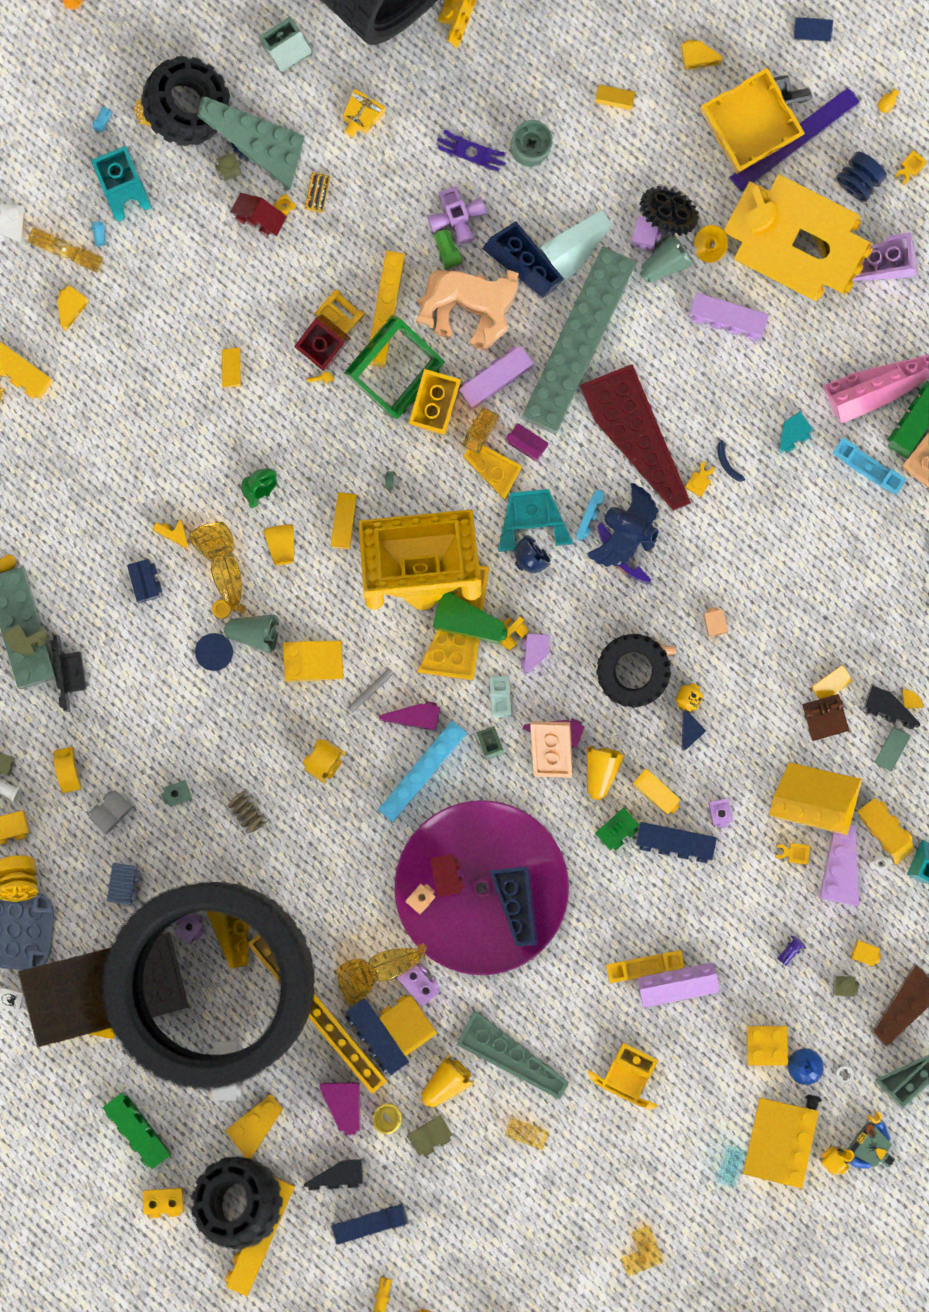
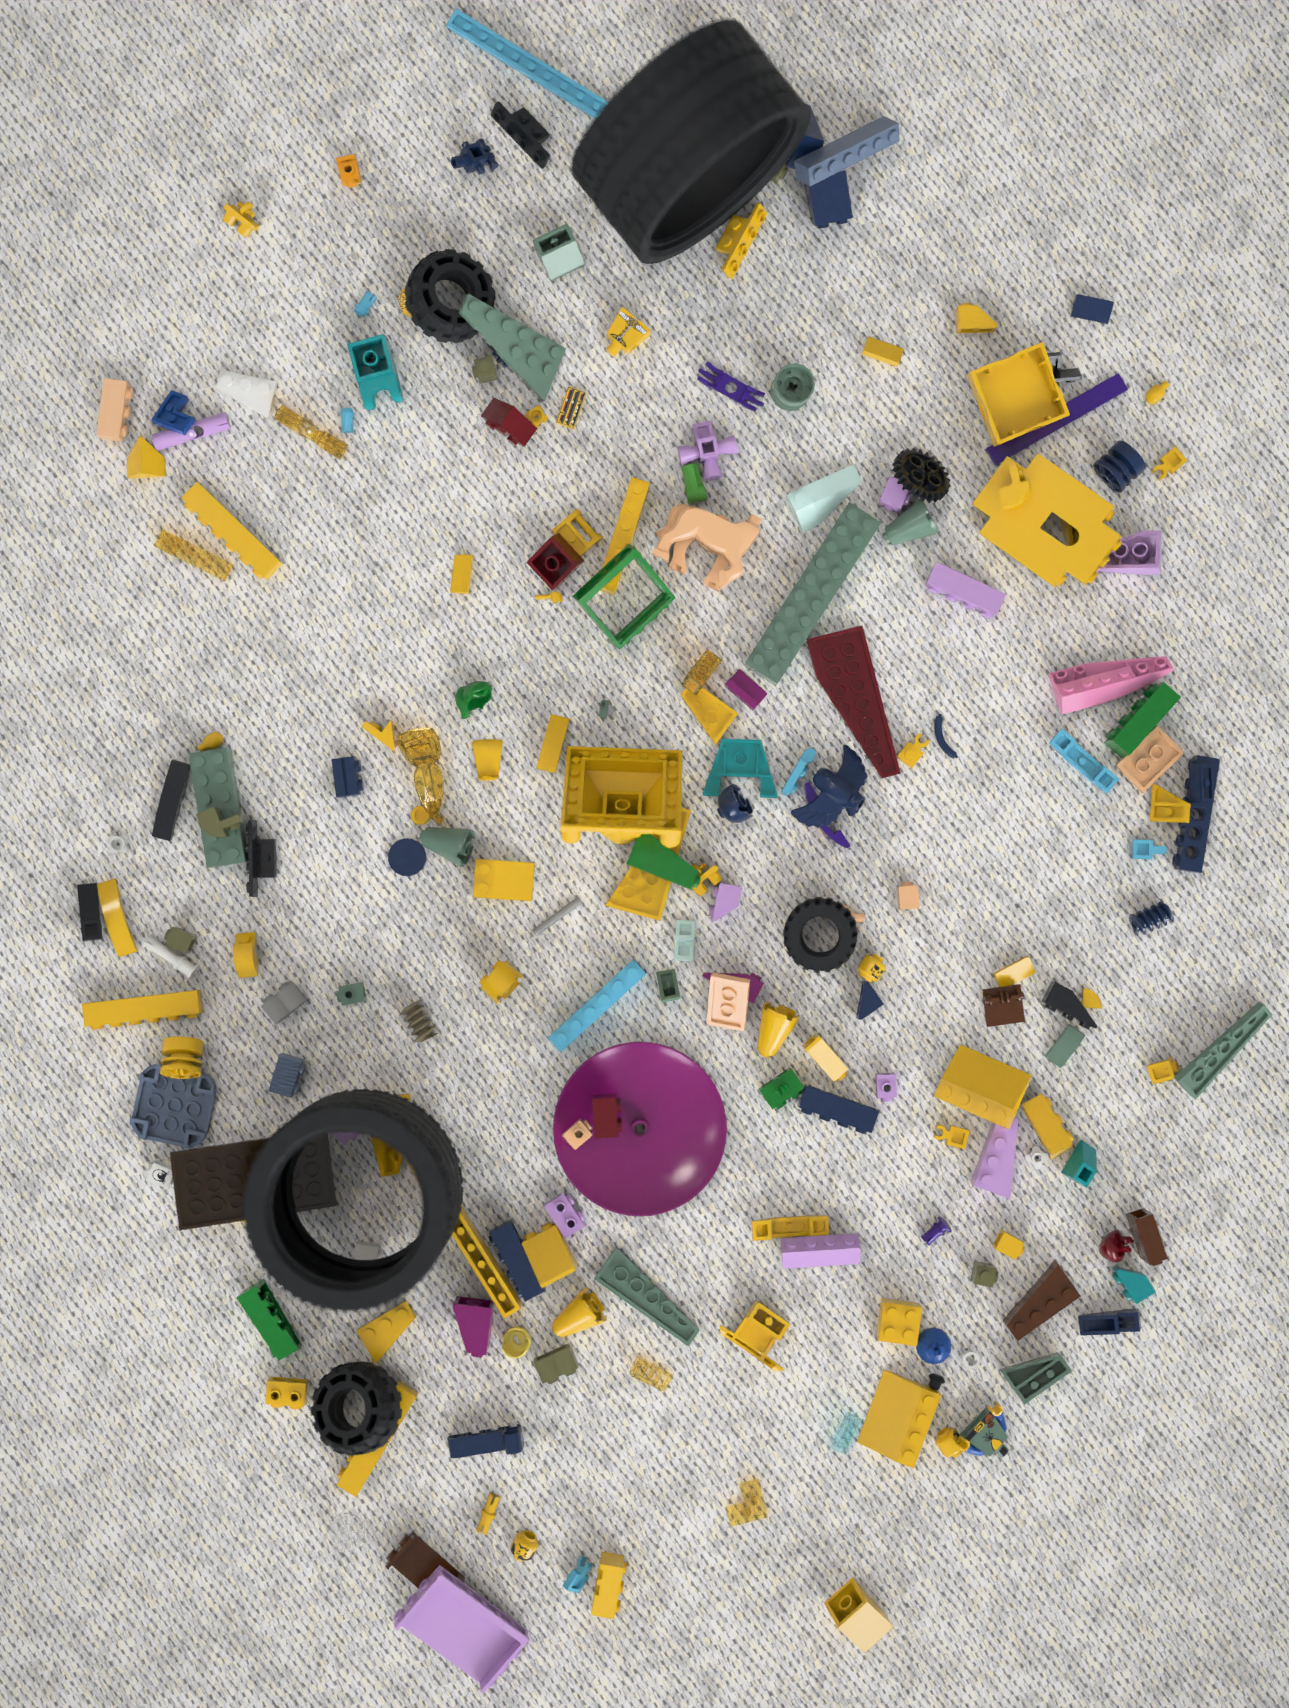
camera: 10 degrees right, 5 degrees up
(70, 306) = (308, 490): yellow slope -> none
(343, 1173) = (464, 1389): black slope -> none
(358, 977) = (507, 1200): clear yellow piece -> none
(418, 716) = (600, 949): magenta slope -> none
(434, 402) = (659, 637): yellow slope -> none
(496, 377) = (723, 620): lavender brick -> none
(517, 901) = (673, 1146): dark blue wedge -> none
(521, 255) = (766, 500): dark blue wedge -> none
(704, 241) = (951, 510): yellow dish -> none
(793, 431) = (1012, 715): teal slope -> none

